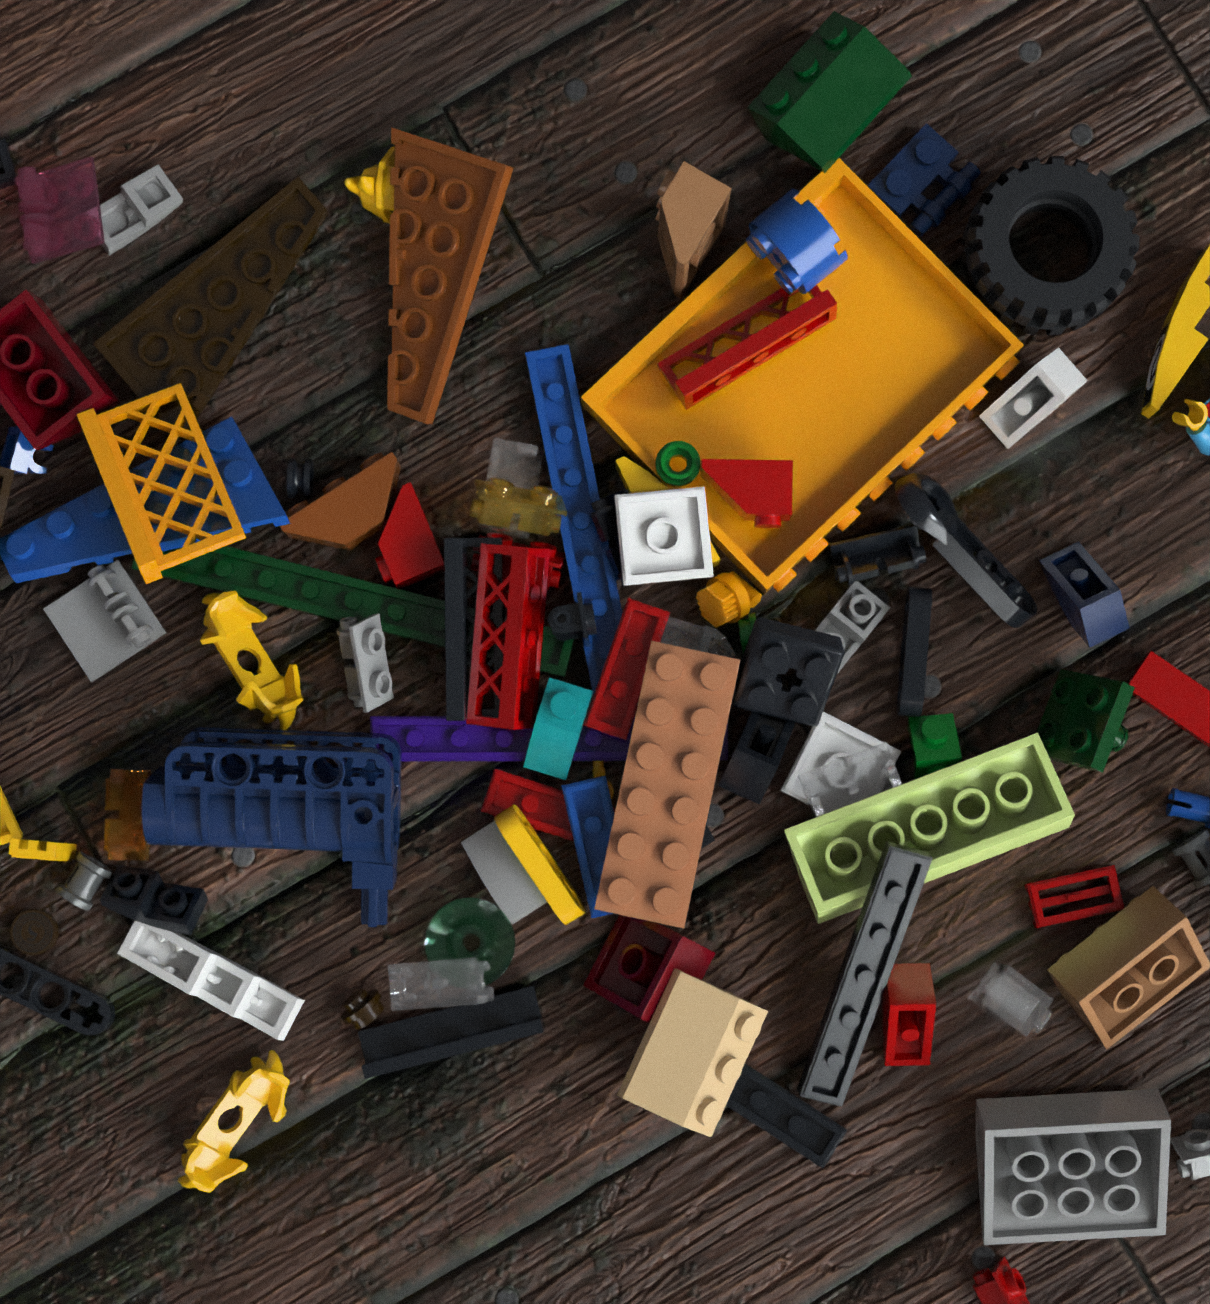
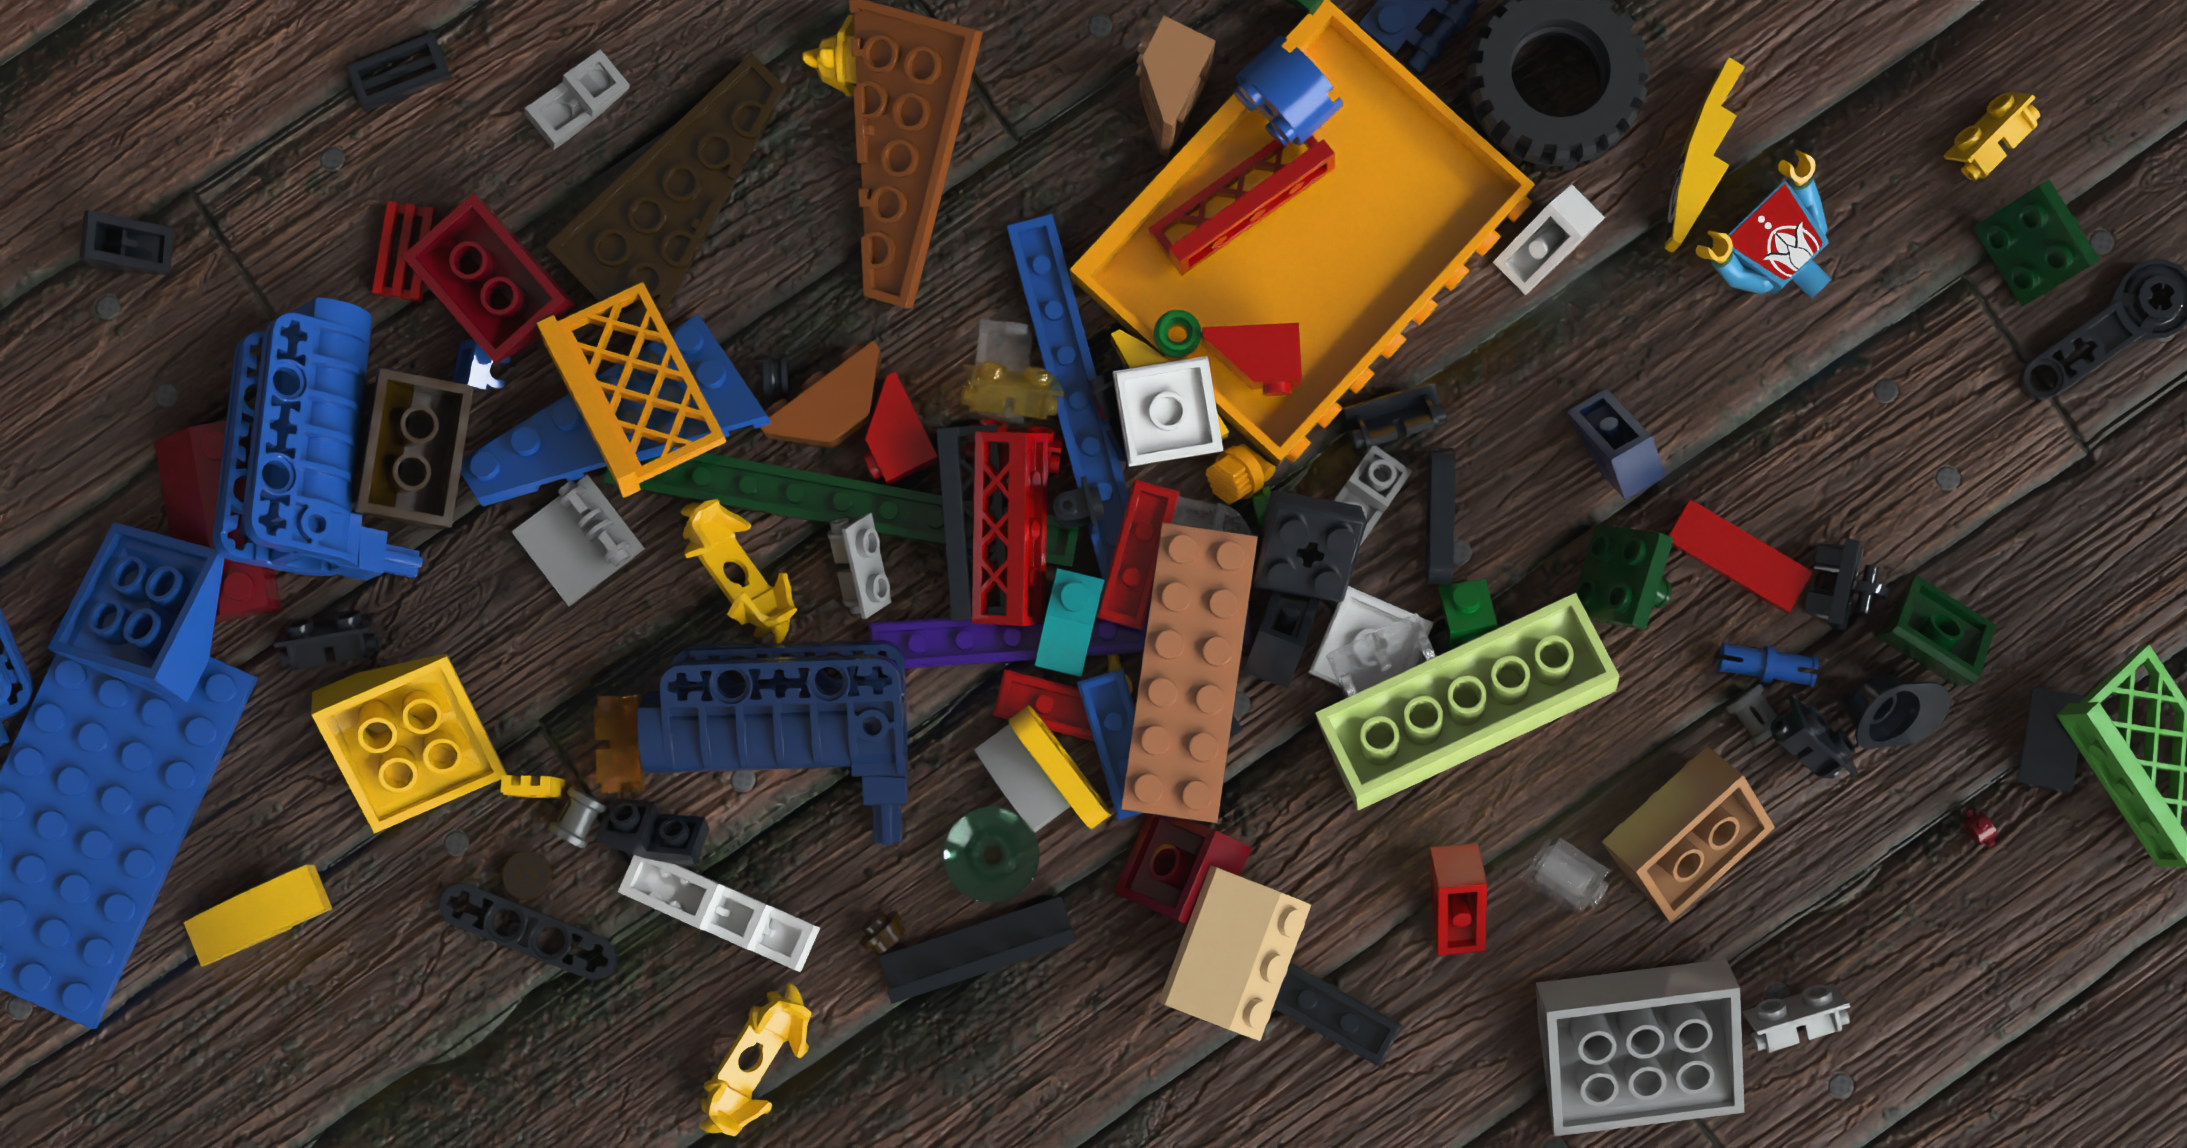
camera: 10 degrees left, 0 degrees up
(60, 209) = (500, 105): clear pink hinge -> none
(438, 984) = (962, 899): clear hinge -> none
(864, 973) = (1409, 858): tile -> none
(932, 510) = (1449, 365): black beam -> none
(1036, 904) = (1586, 774): red tile -> none

